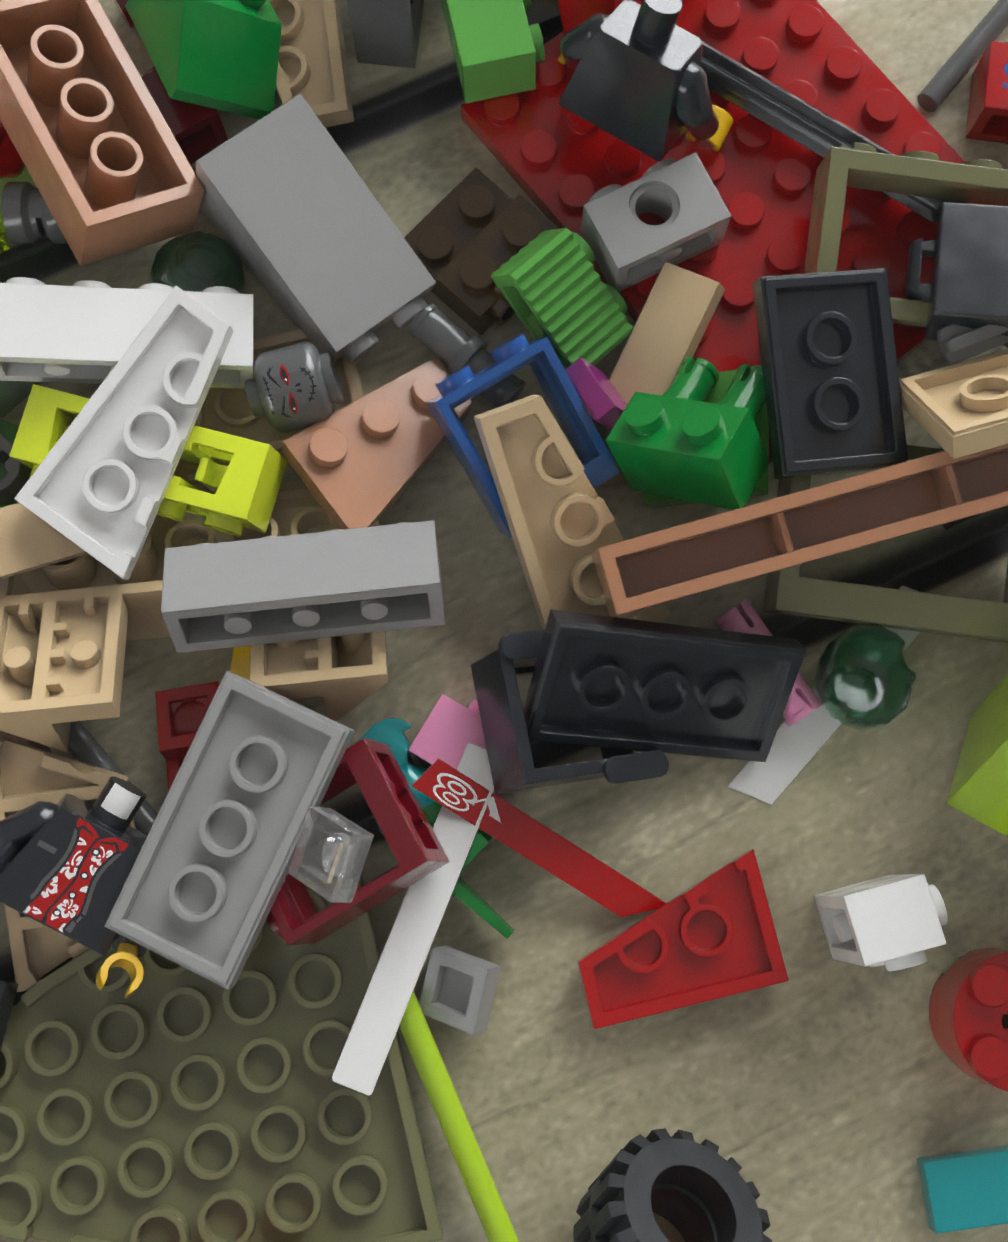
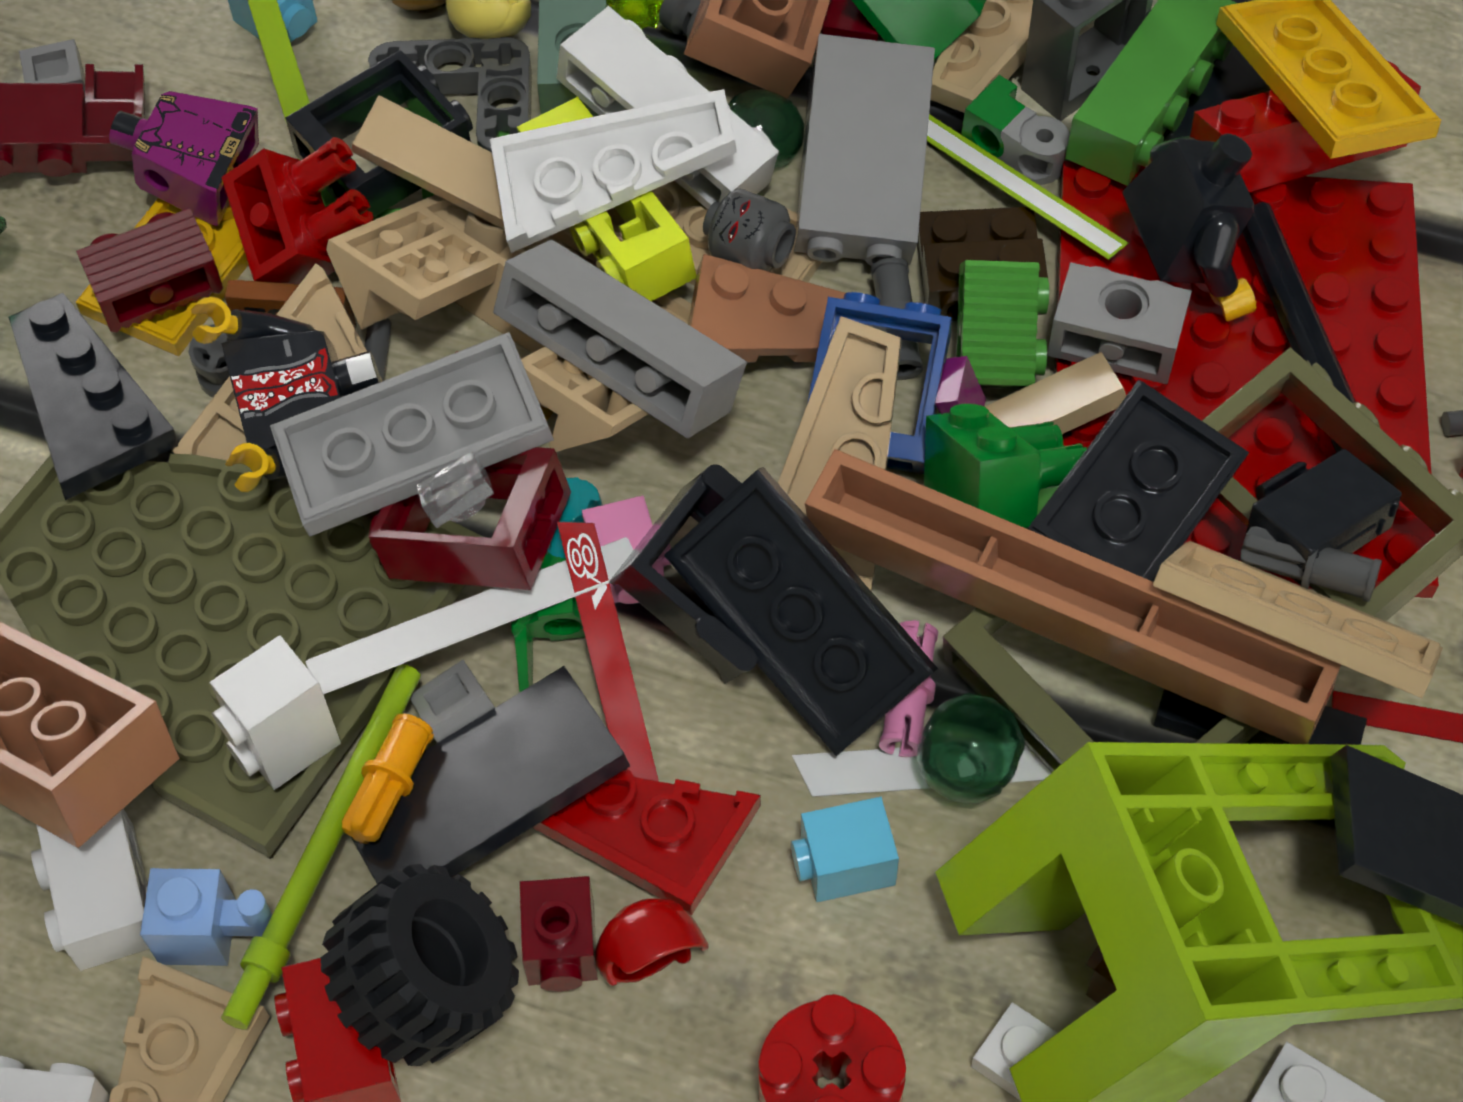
camera: 45 degrees right, 20 degrees down
(365, 1162) = (273, 714): none -> white brick
(404, 111) = (1016, 133): none -> leg
(468, 157) = (1024, 189): none -> sticker
(486, 1107) = (387, 778): none -> light orange axle
(555, 1038) = (498, 779): none -> black tile
(718, 1092) = (558, 932): none -> dark red brick
(796, 1043) = (646, 940): none -> red hair
(850, 832) = (846, 850): none -> medium azure brick
(883, 921) = (800, 908): white brick -> none

